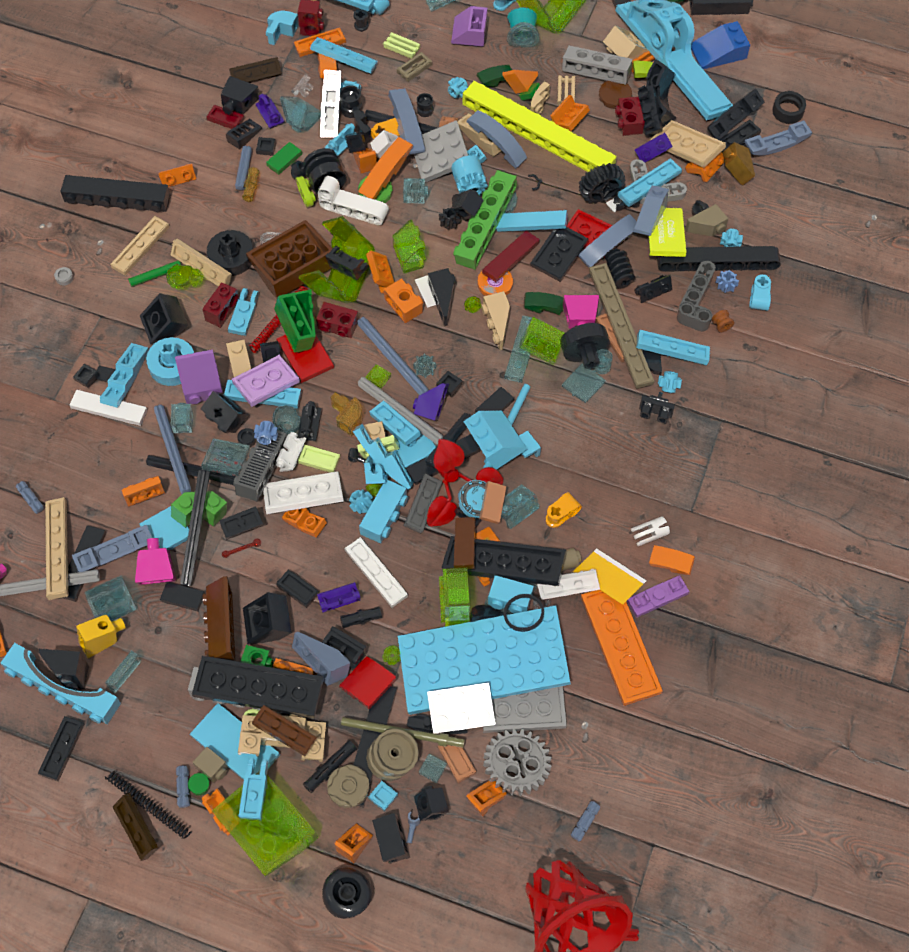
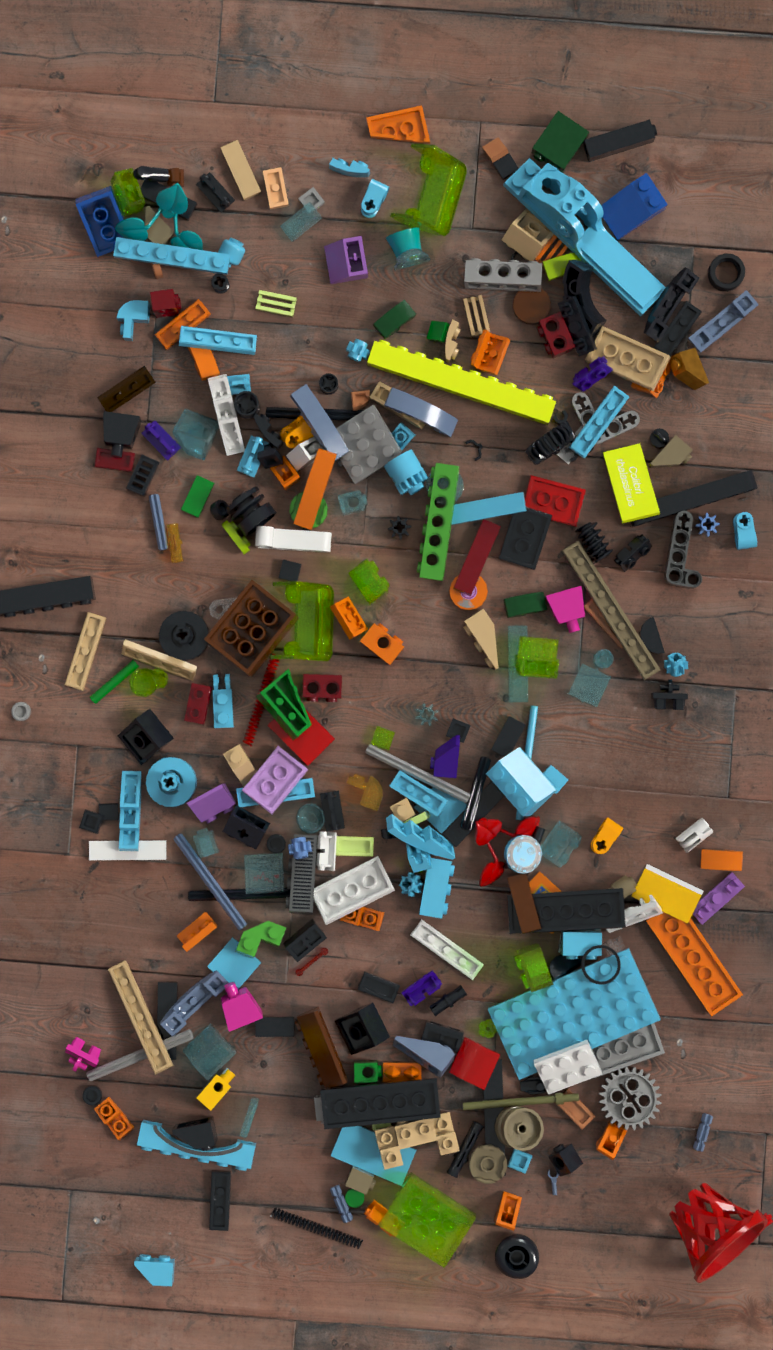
camera: 15 degrees left, 25 degrees up
(29, 497) = (90, 968): sand blue axle -> none
(135, 827) = (314, 1252): dark brown plate -> none
(177, 175) = (98, 548): orange hinge -> none
(195, 527) = (266, 963): black axle -> none
(253, 791) = (411, 1202): medium azure hinge -> none
(266, 146) = (172, 485): black tile -> none
(269, 350) = (267, 743): black tile -> none
(284, 730) = (419, 1139): reddish brown tile -> none
(302, 85) = (184, 394): clear tile -> none
(346, 264) = (313, 623): black hinge -> none
(391, 838) = (539, 1198): black hinge -> none
(392, 356) = (390, 711): sand blue axle -> none
(416, 68) = (305, 334): dark tan tile -> none
(424, 496) = (469, 868): dark grey tile -> none
(425, 291) = (401, 620): white sticker -> none
(432, 768) = (555, 1123): clear light blue tile -> none
(442, 289) = (418, 619): black slope -> none
(466, 203) = (414, 512): black slope -> none
(472, 304) = (453, 626): clear neon green plate -> none
(492, 502) = (539, 854): nougat tile -> none
(520, 80) = (425, 319): orange slope -> none
(583, 342) = (585, 655): black piece -> none
(608, 240) = (576, 509): sand blue slope -> none
(652, 210) = (610, 465): sand blue slope -> none
(673, 347) = (670, 624): medium azure plate -> none
(723, 321) = (713, 575): dark orange wheel -> none
(731, 238) = (701, 471): medium azure gear -> none

